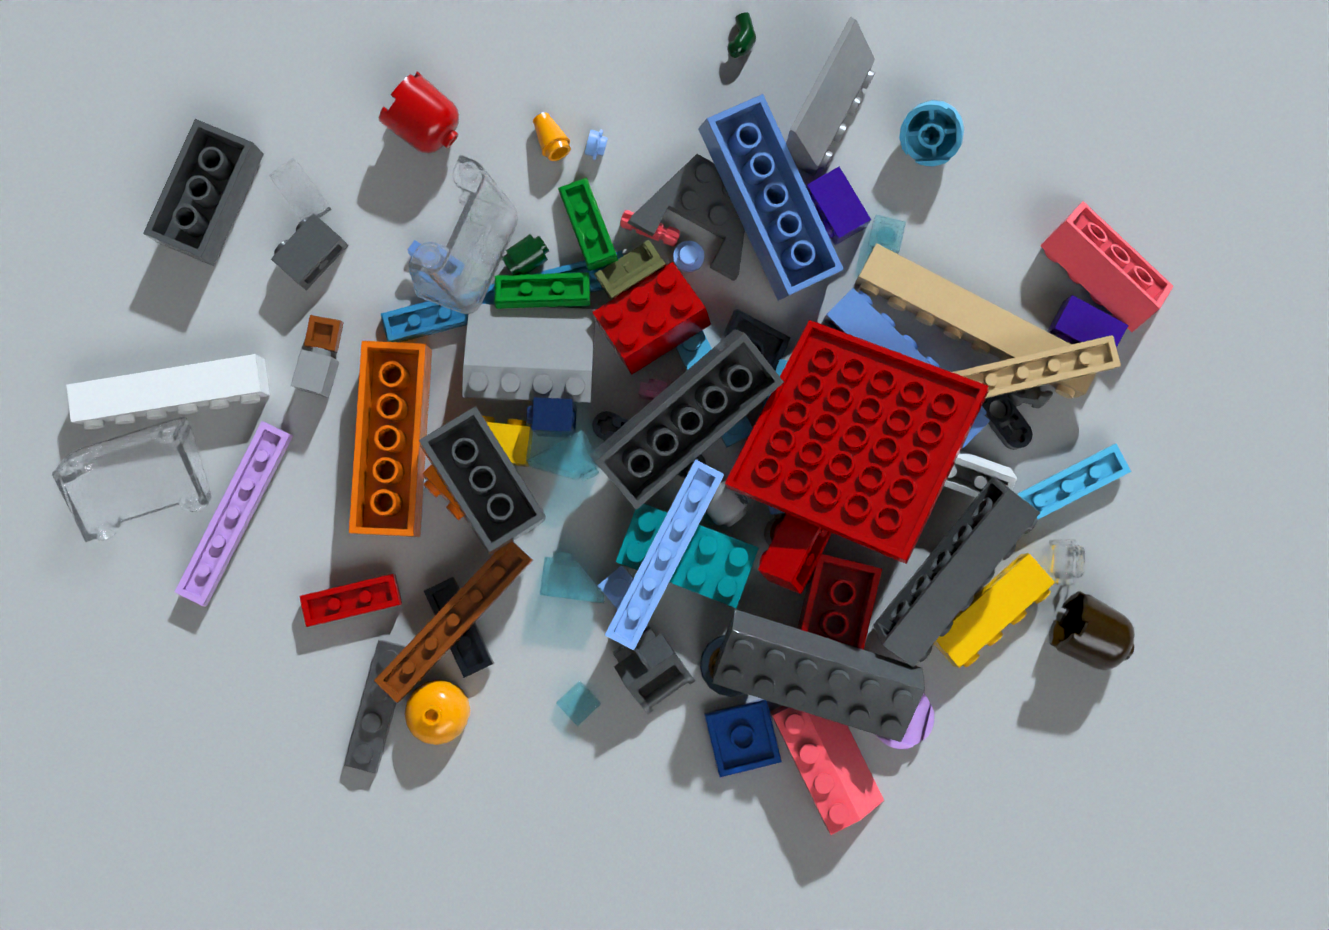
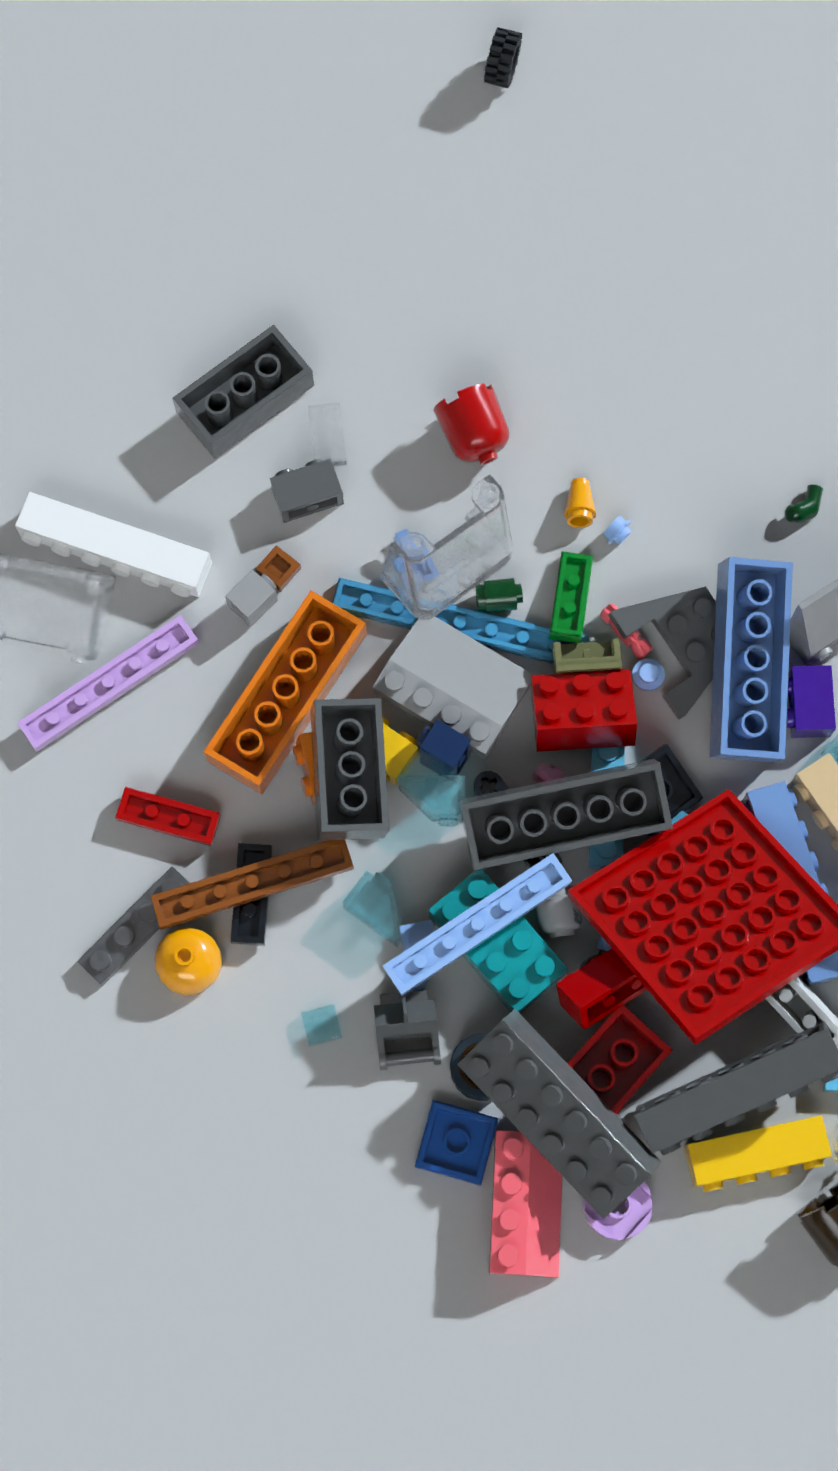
camera: 30 degrees right, 10 degrees down
(542, 290) = (497, 633): green tile -> none

